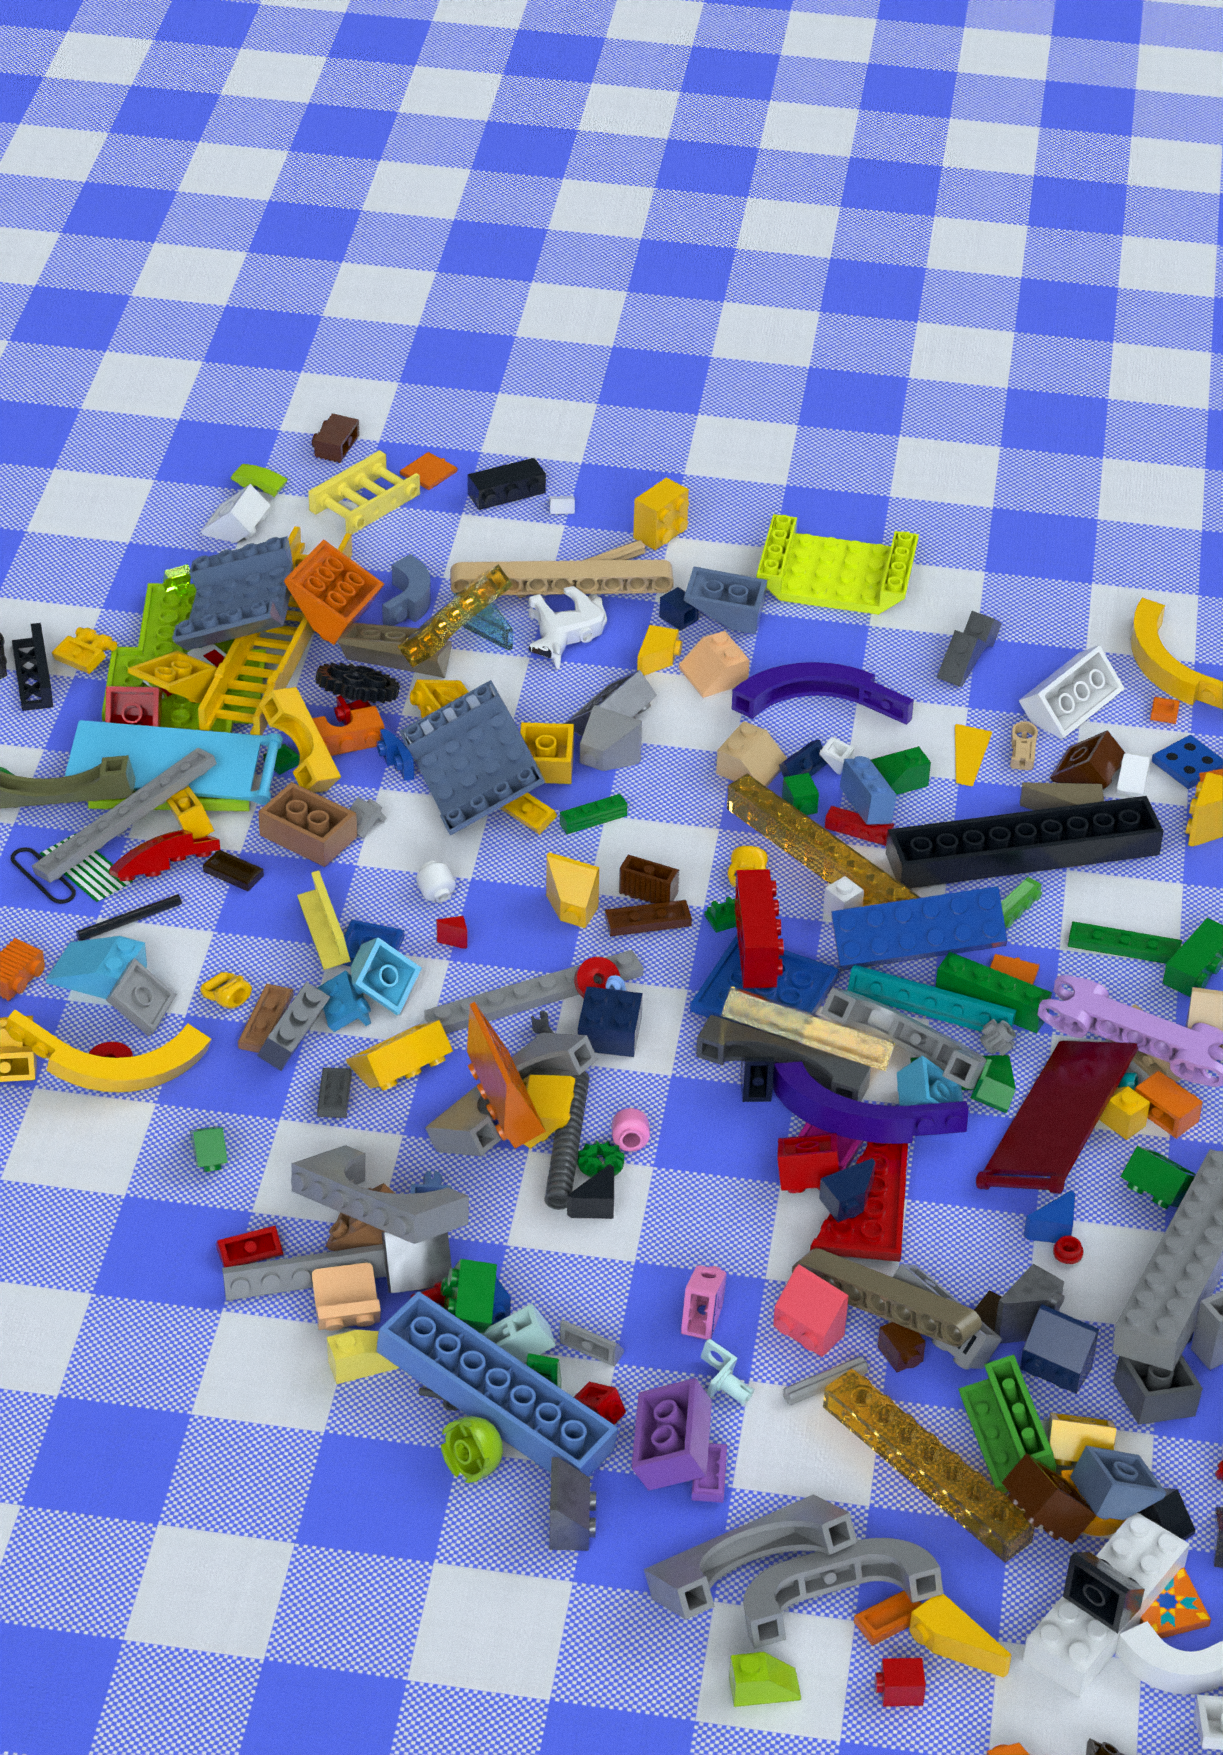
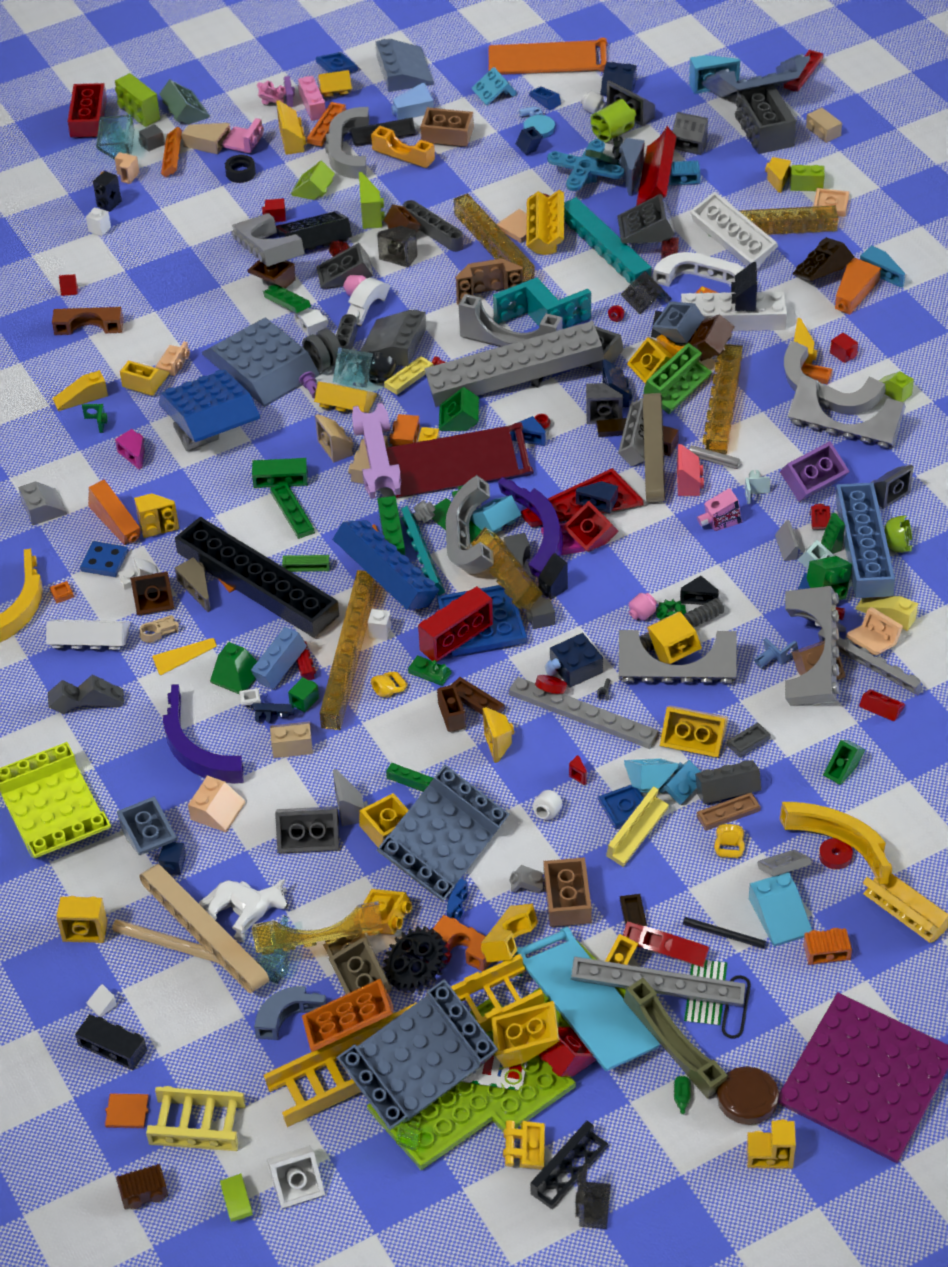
camera: 125 degrees left, 5 degrees up
(500, 1082) = (696, 633): orange slope -> none
(658, 649) = (227, 842): yellow slope -> none

